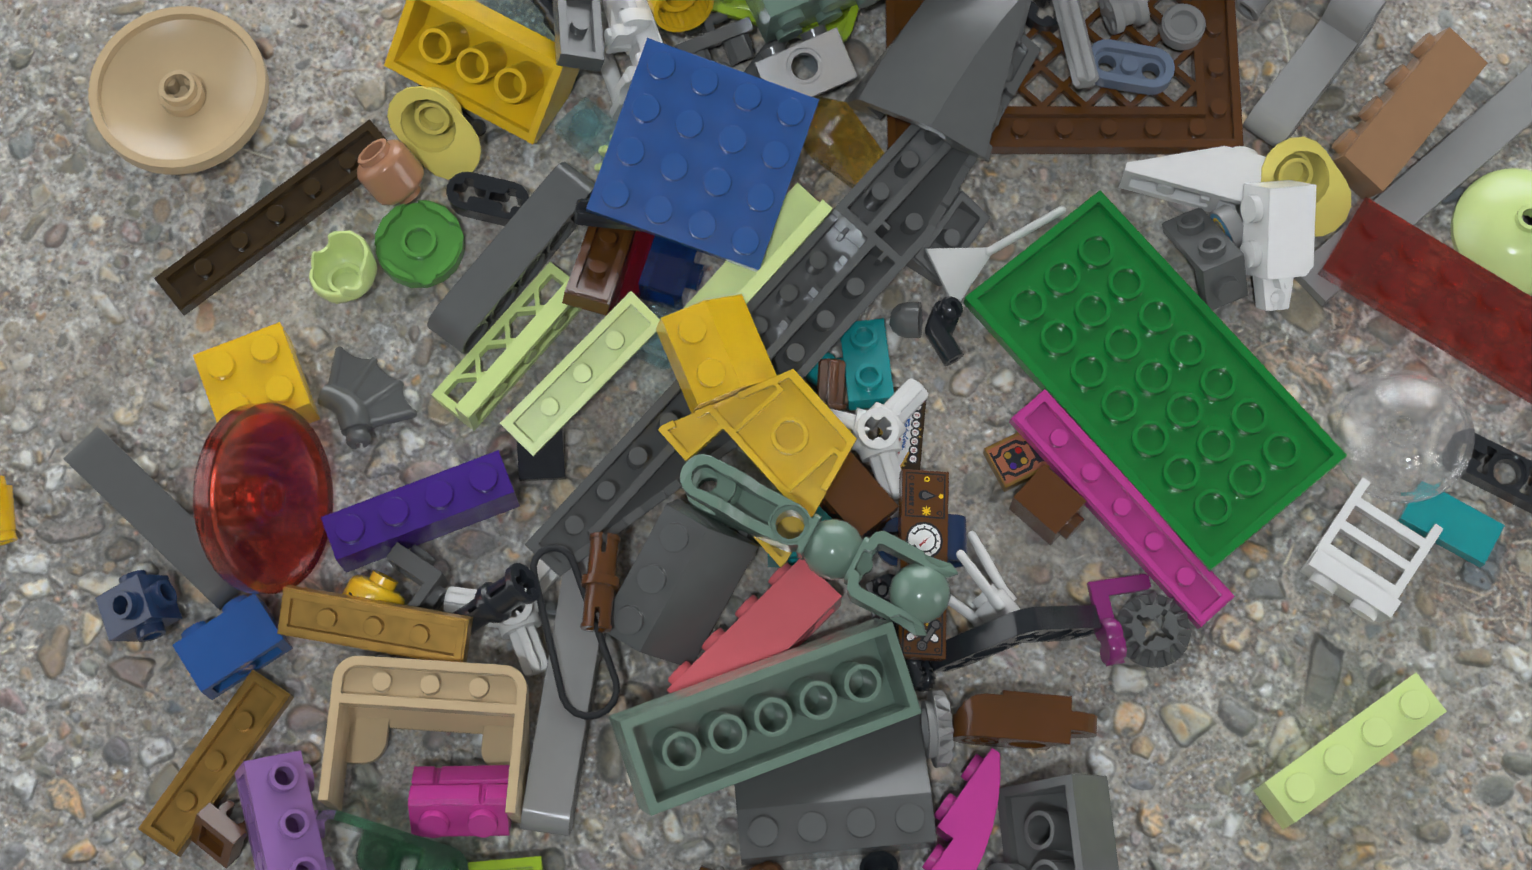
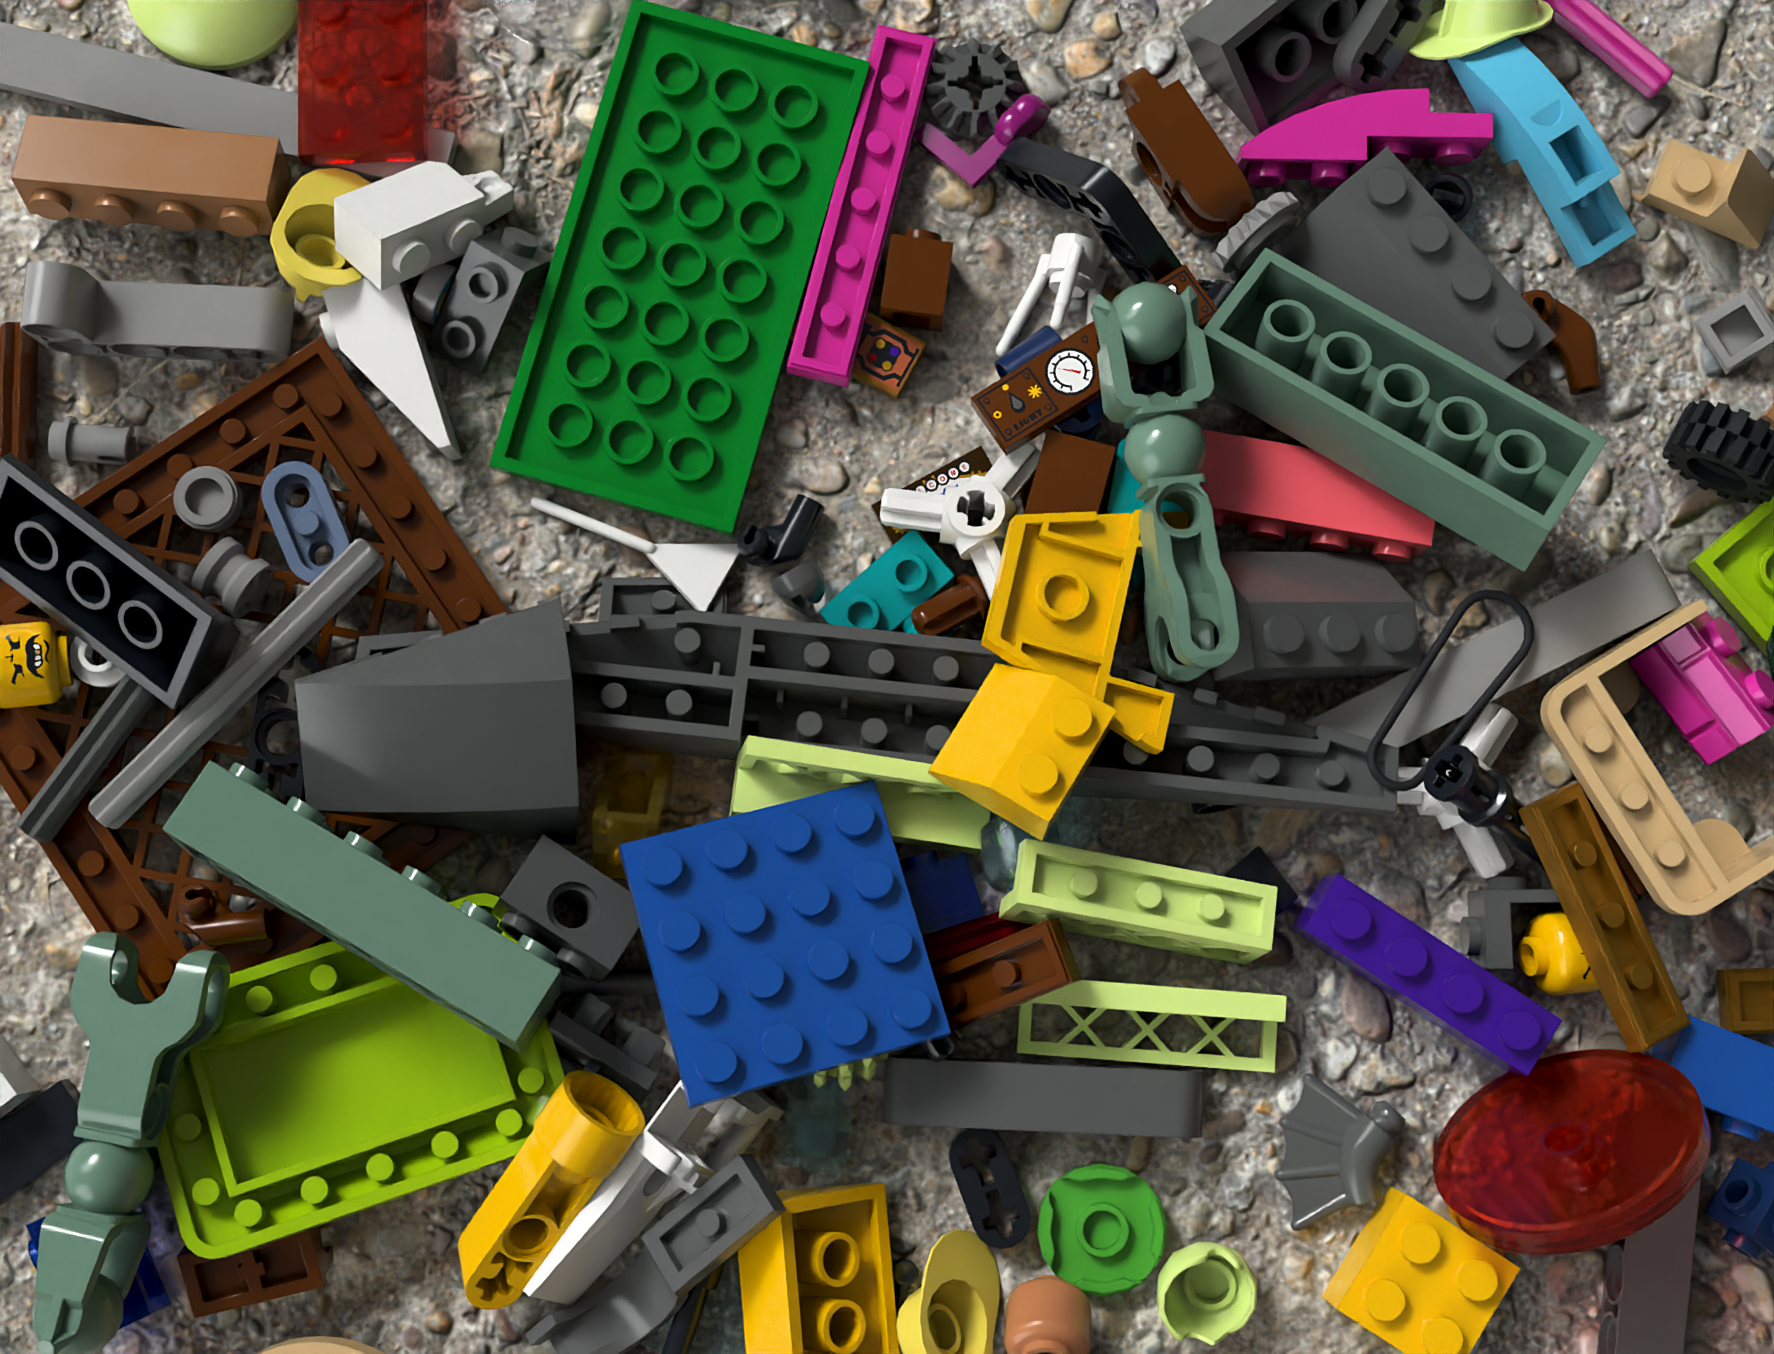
camera: 125 degrees left, 10 degrees up
(600, 582) = (1380, 691): reddish brown pin -> none

